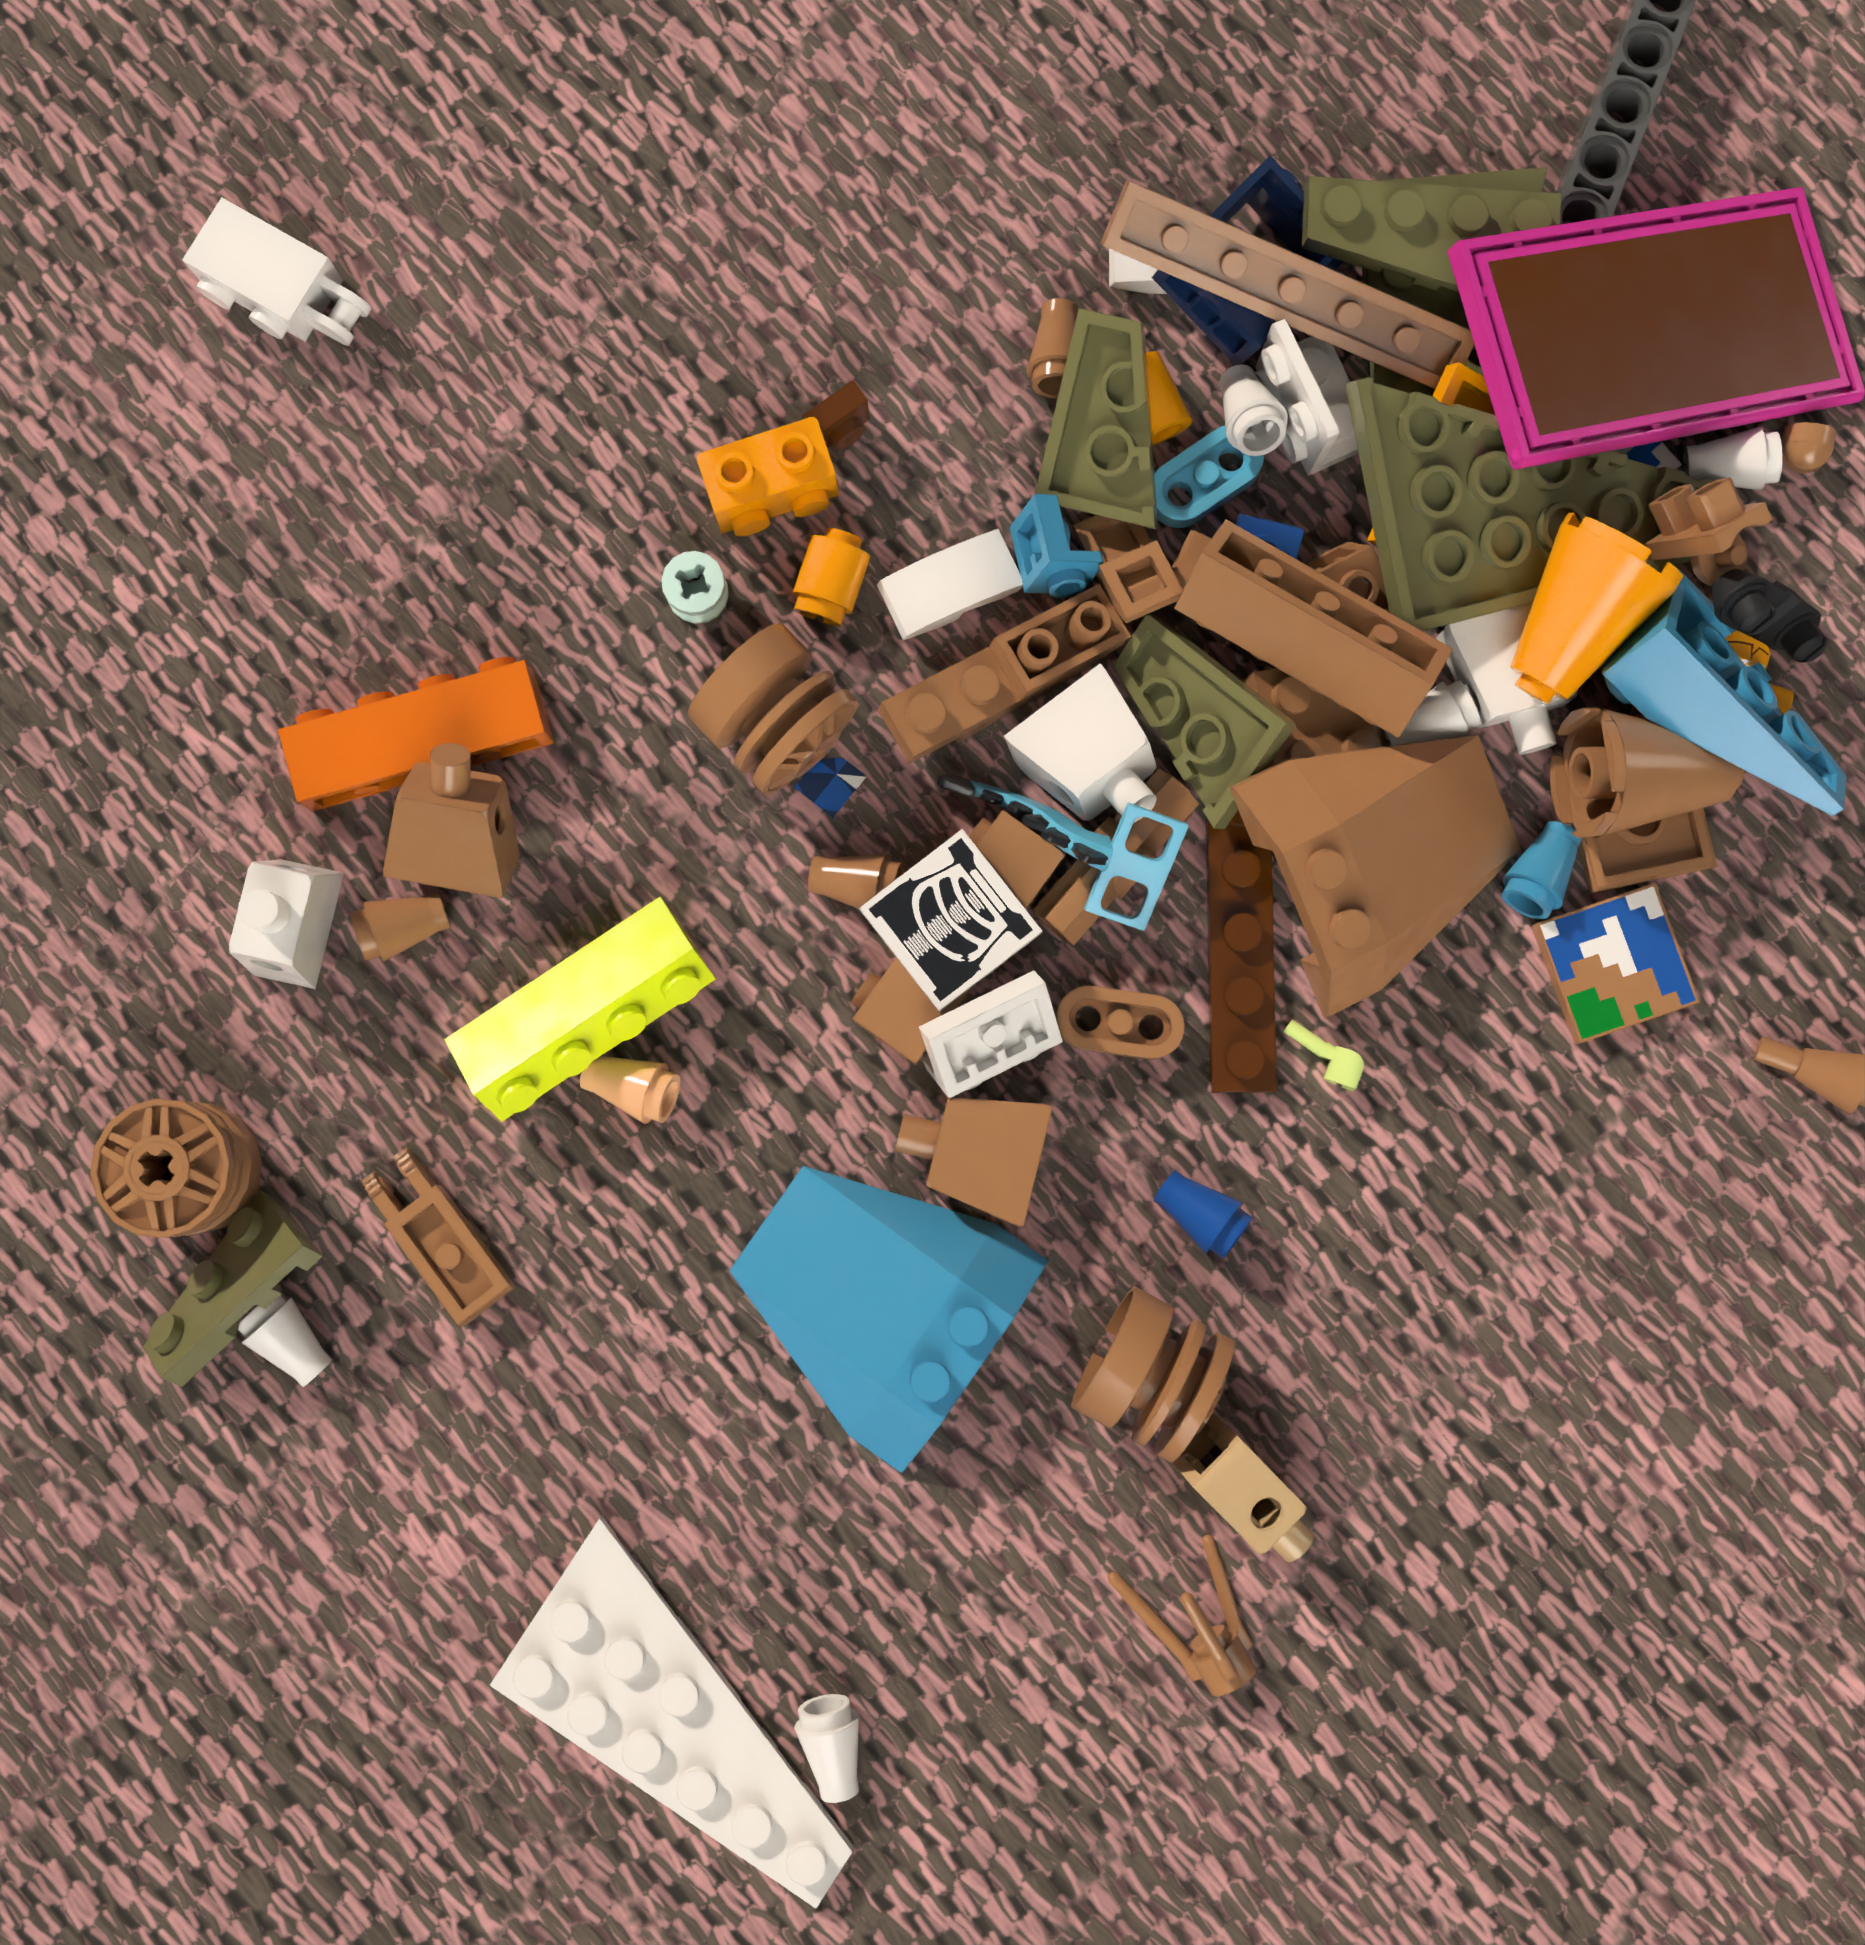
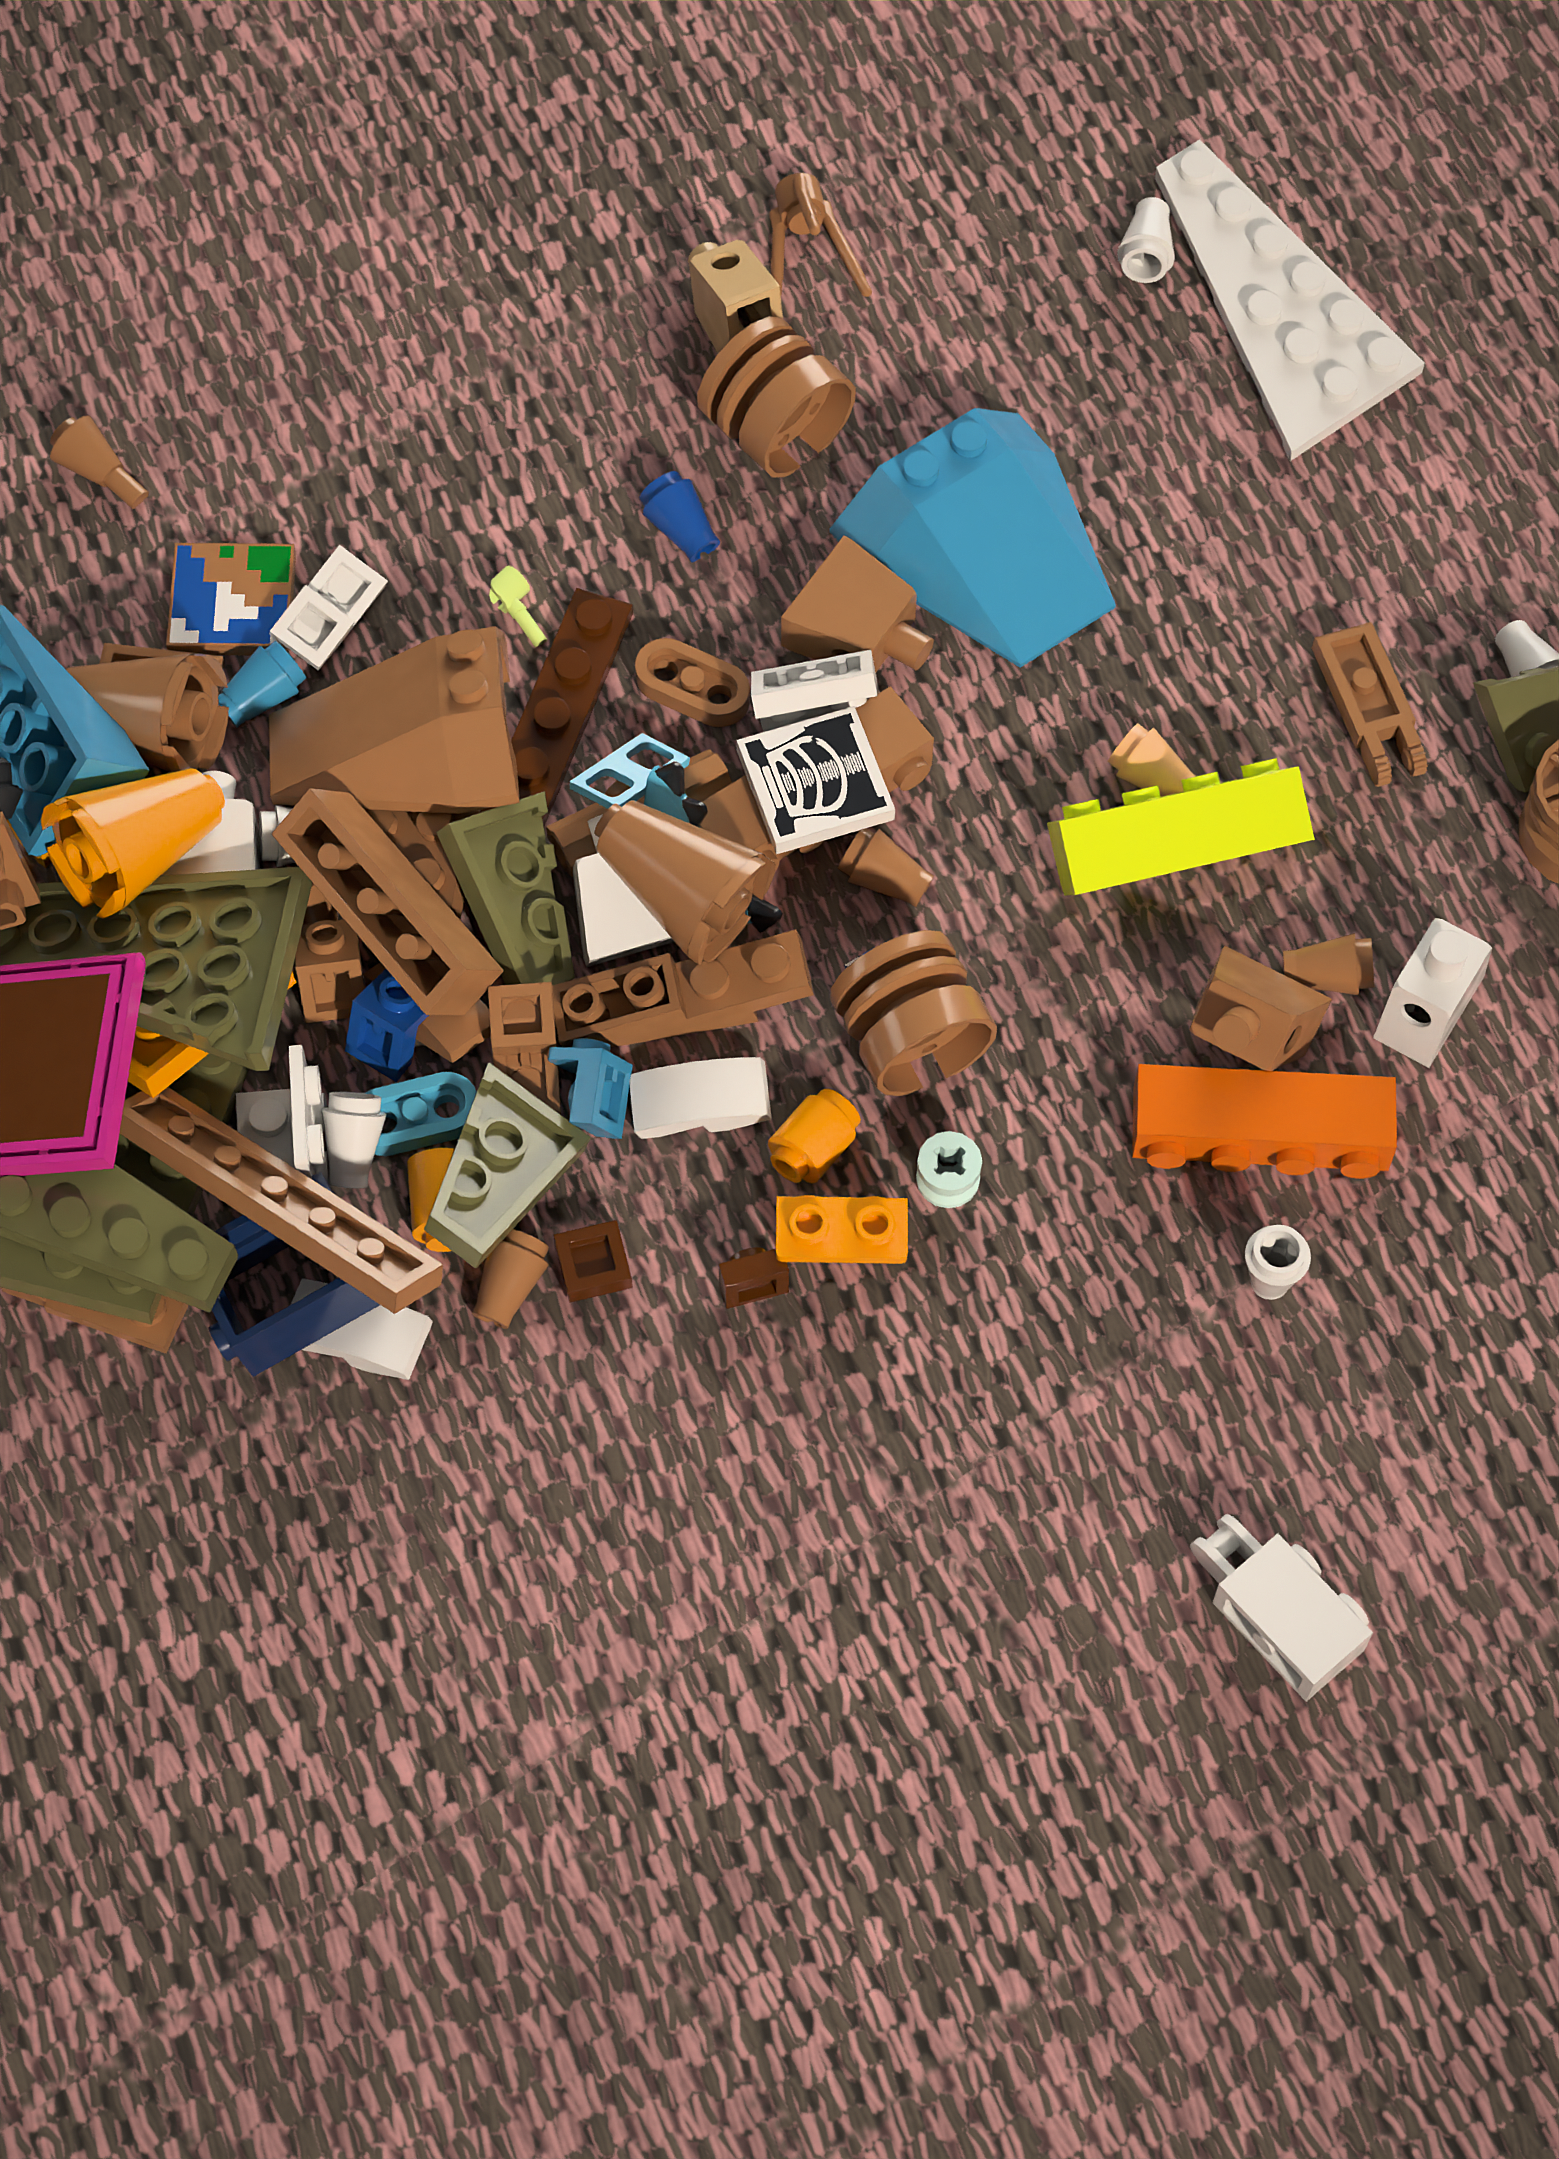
camera: 165 degrees left, 20 degrees down
(359, 578) = (1276, 1260): none -> white cone
(988, 390) = (593, 1261): none -> reddish brown plate
(1036, 740) = (684, 875): none -> medium nougat cone
(1513, 978) = (328, 607): none -> white slope

